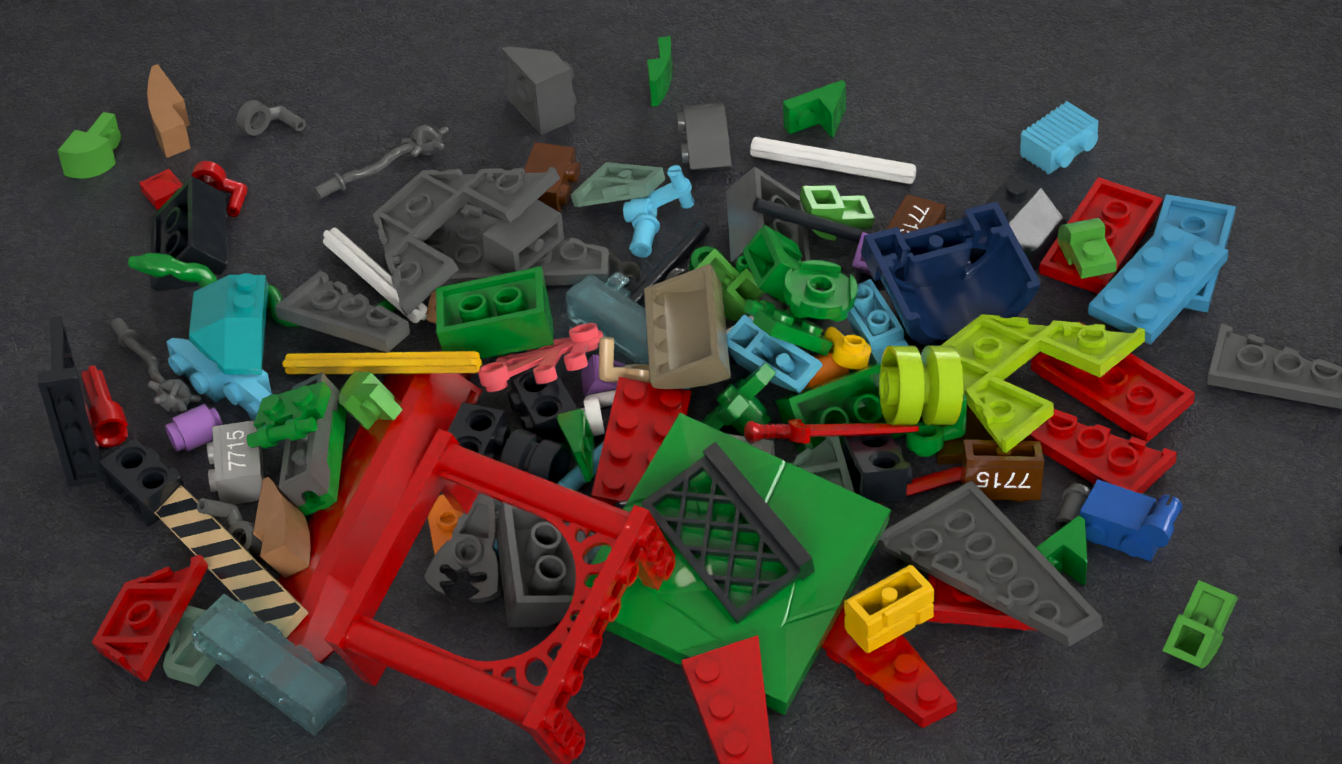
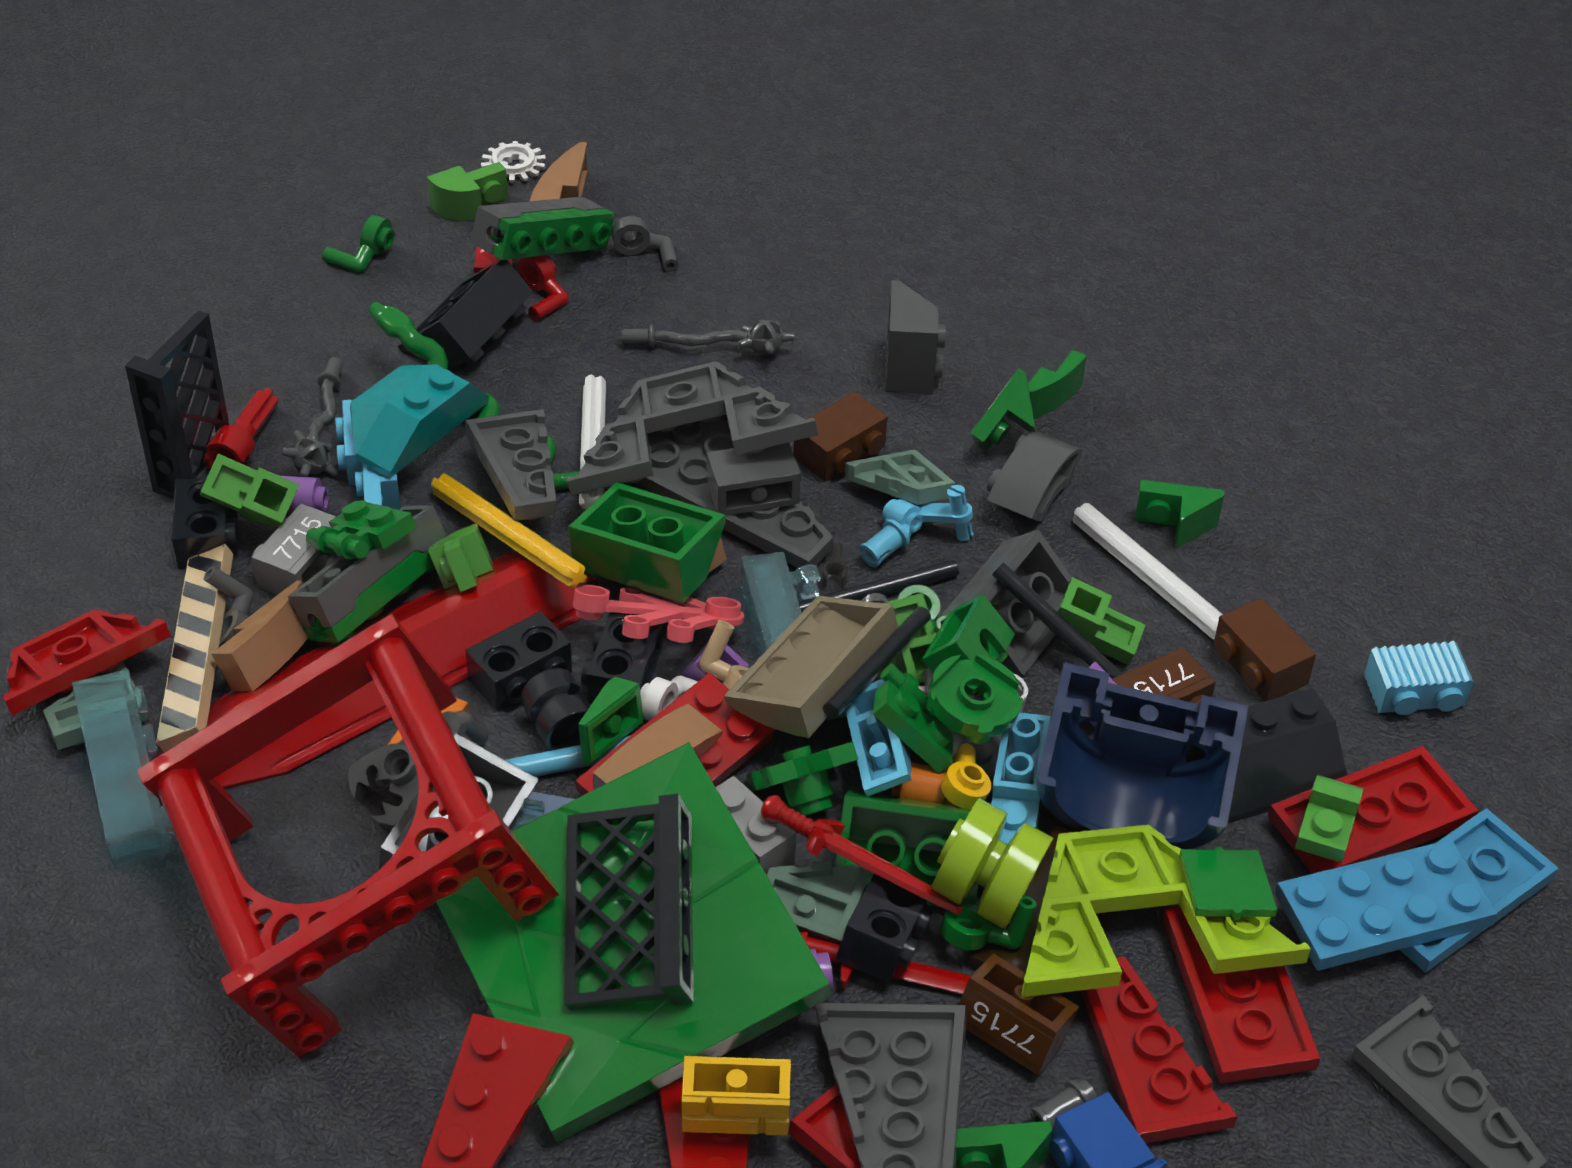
camera: 30 degrees right, 0 degrees up
(56, 217) = (374, 239): none -> green plate
(85, 112) = (529, 161): none -> white gear
(174, 437) = (253, 493): none -> bright green brick
(195, 142) = (542, 227): none -> green piece
(641, 442) = (659, 738): none -> medium nougat slope
(655, 94) = (1012, 404): none -> green slope
(729, 307) = (876, 663): none -> black bar
(951, 171) = (1264, 650): none -> reddish brown brick
(1062, 319) = (1227, 883): none -> green piece

